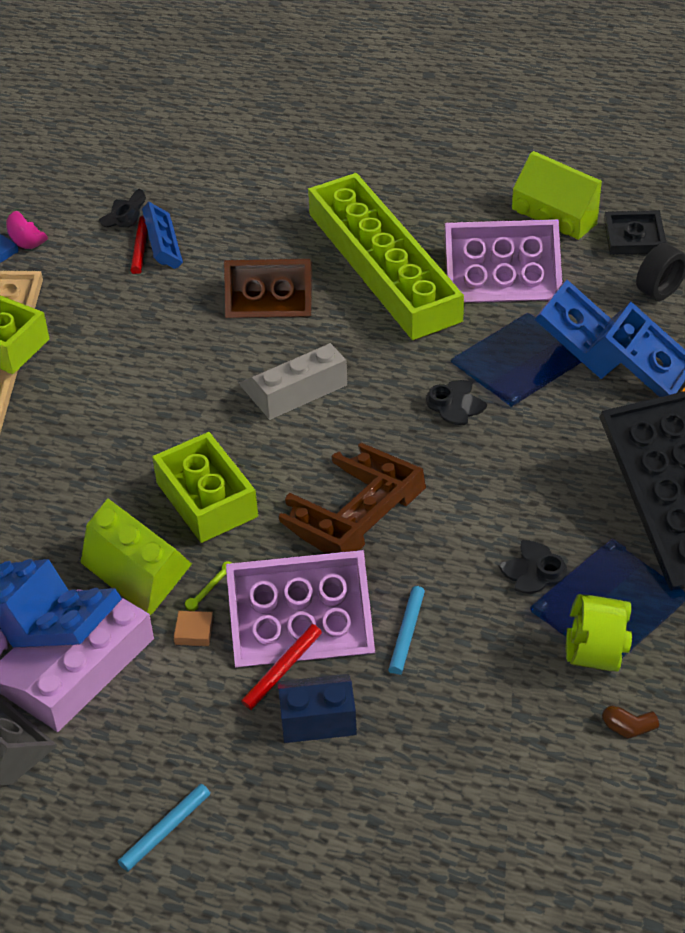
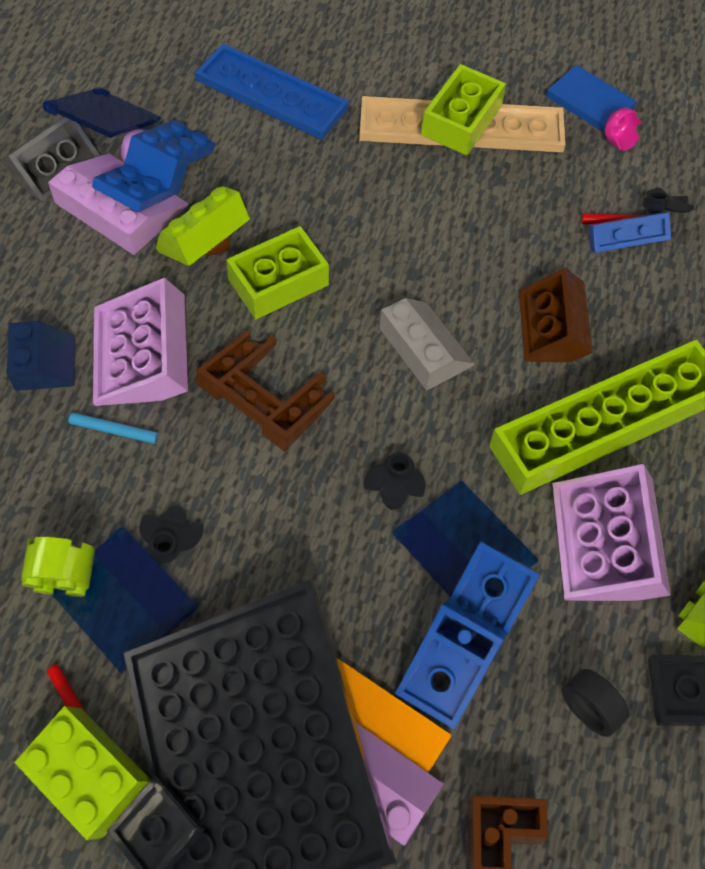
camera: 85 degrees right, 15 degrees up
(193, 603) = (199, 299): lime hinge -> none
(193, 628) = (135, 276): medium nougat tile -> none
(277, 671) = (83, 335): red bar -> none

